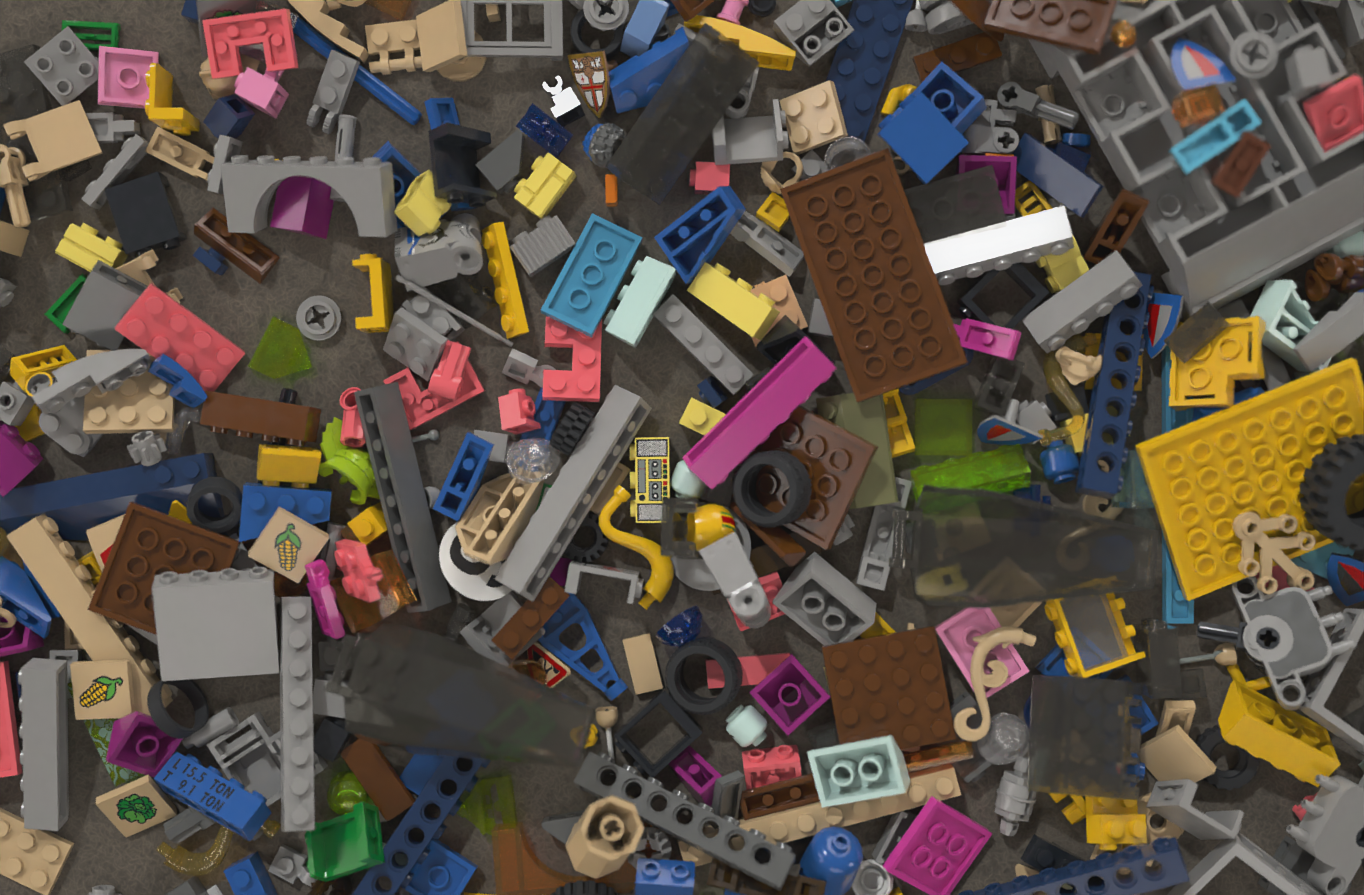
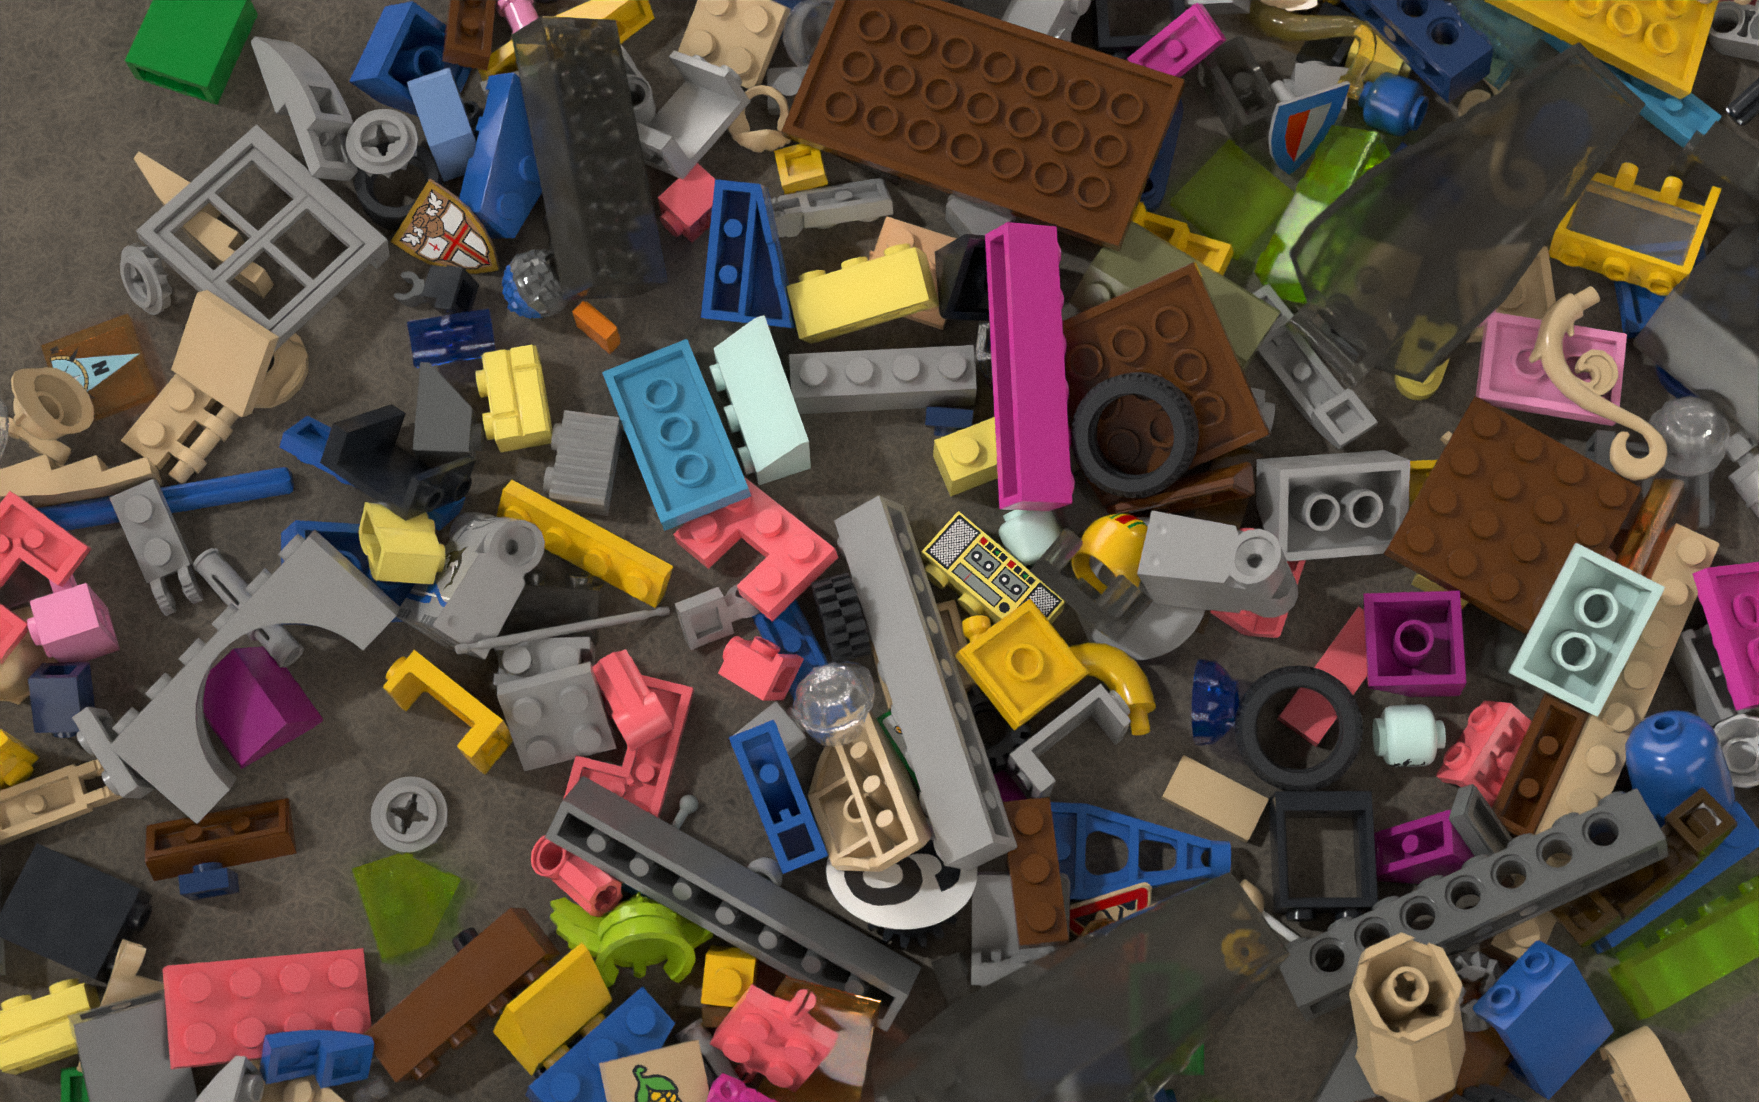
camera: 45 degrees left, 15 degrees down
(620, 530) = (1022, 664): none -> yellow tile

